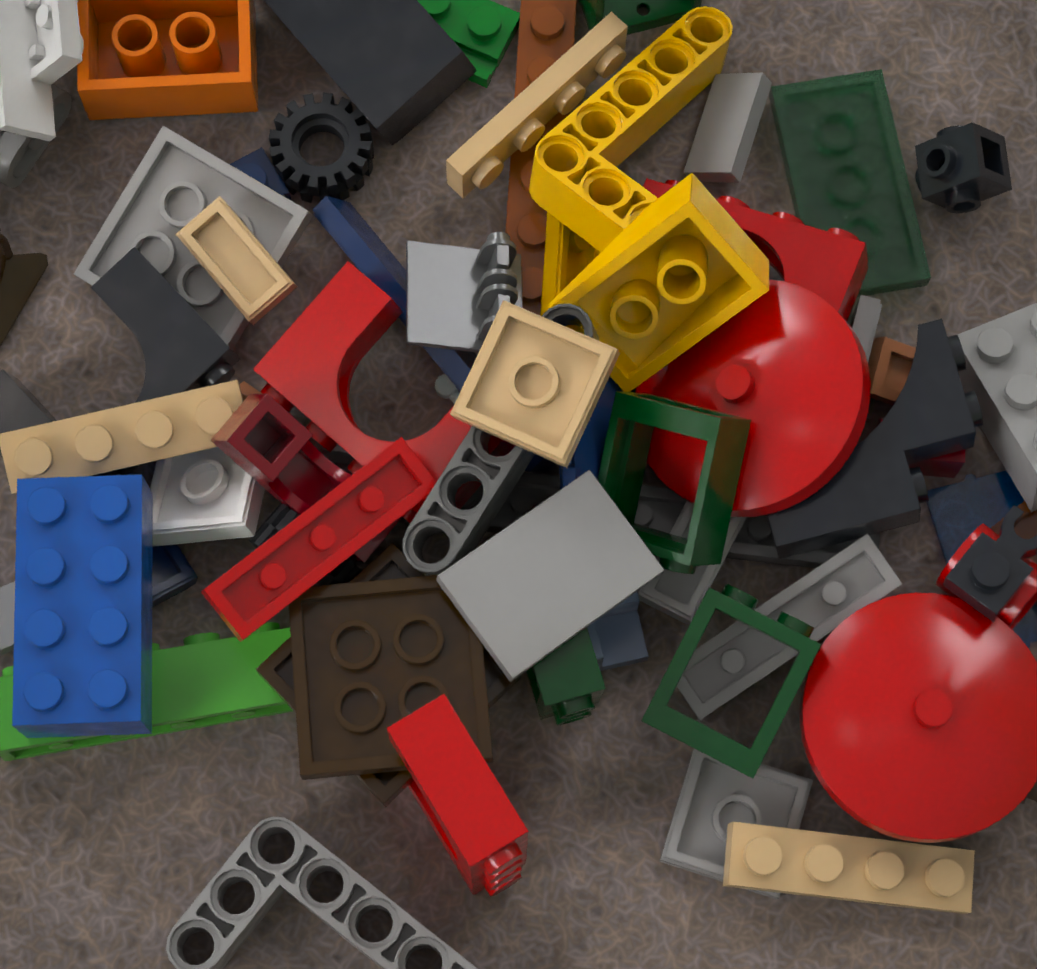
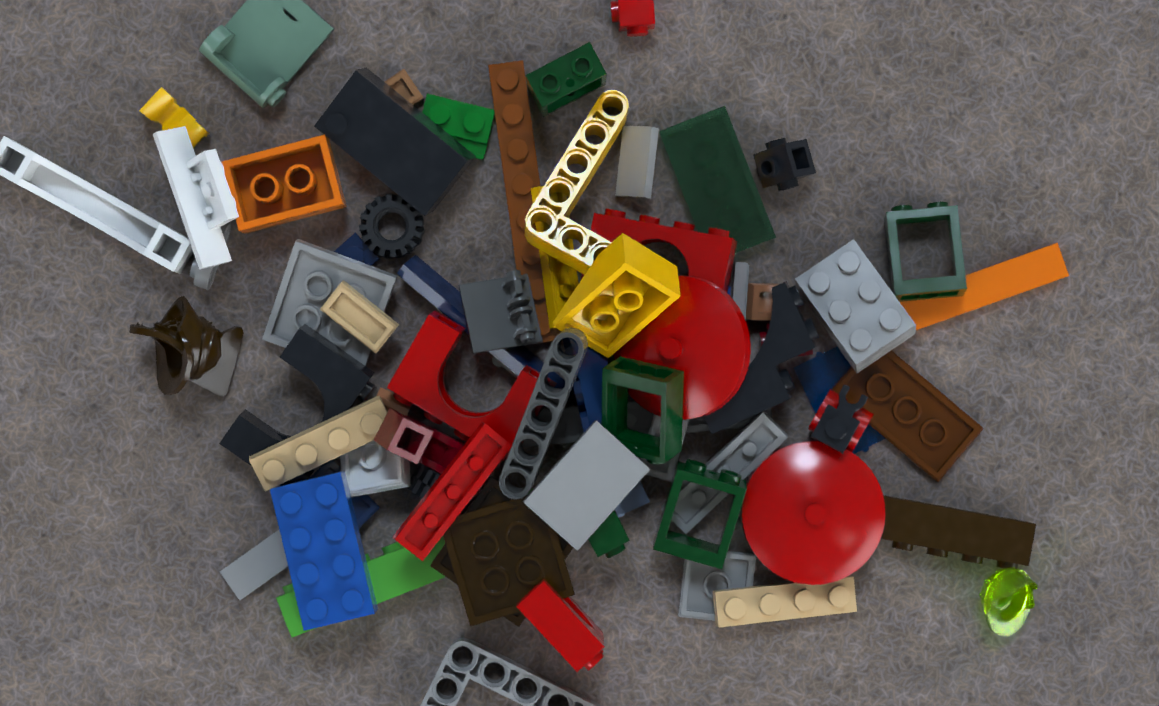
camera: 15 degrees left, 15 degrees up
(523, 119) = (529, 168): tan plate -> none
(535, 383) = (556, 384): tan tile -> none

